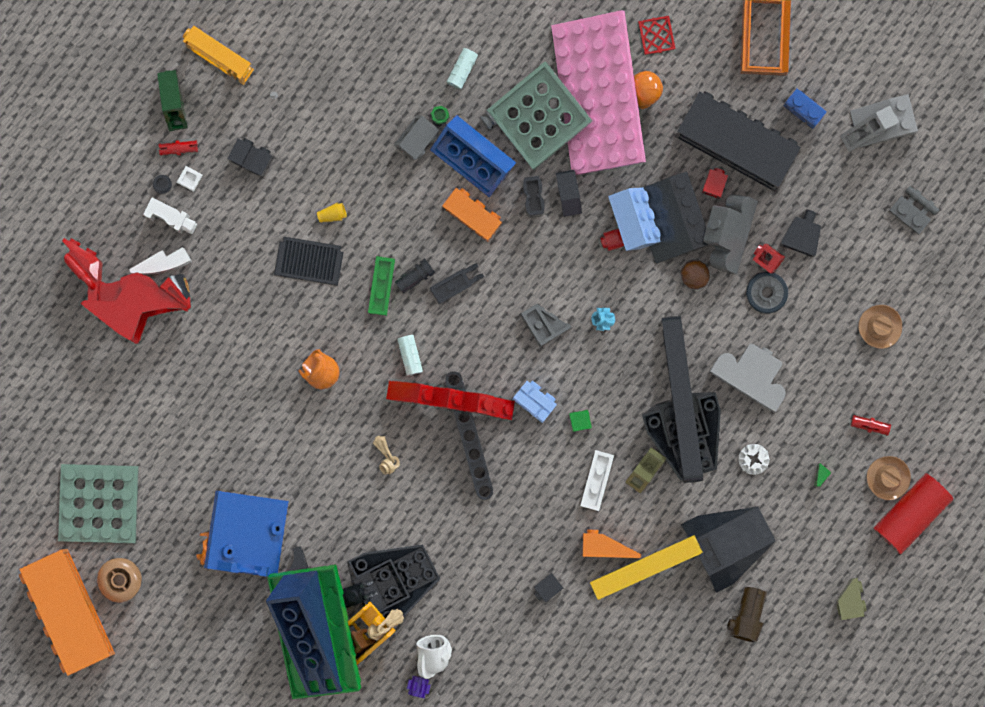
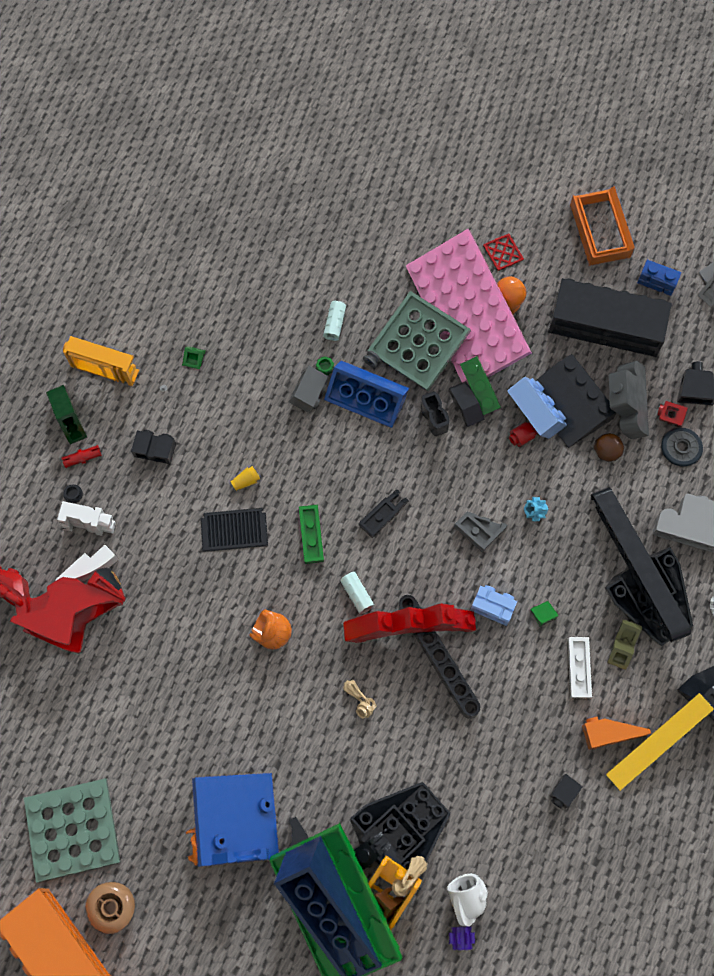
camera: 10 degrees left, 15 degrees down
(189, 178) = (99, 482): white tile -> none
(311, 69) = (193, 357): none -> green slope
(415, 276) = (341, 516): black axle -> none
(472, 214) = (380, 445): orange brick -> none
(587, 179) = (480, 385): none -> green plate
(715, 183) = (600, 361): red brick -> none

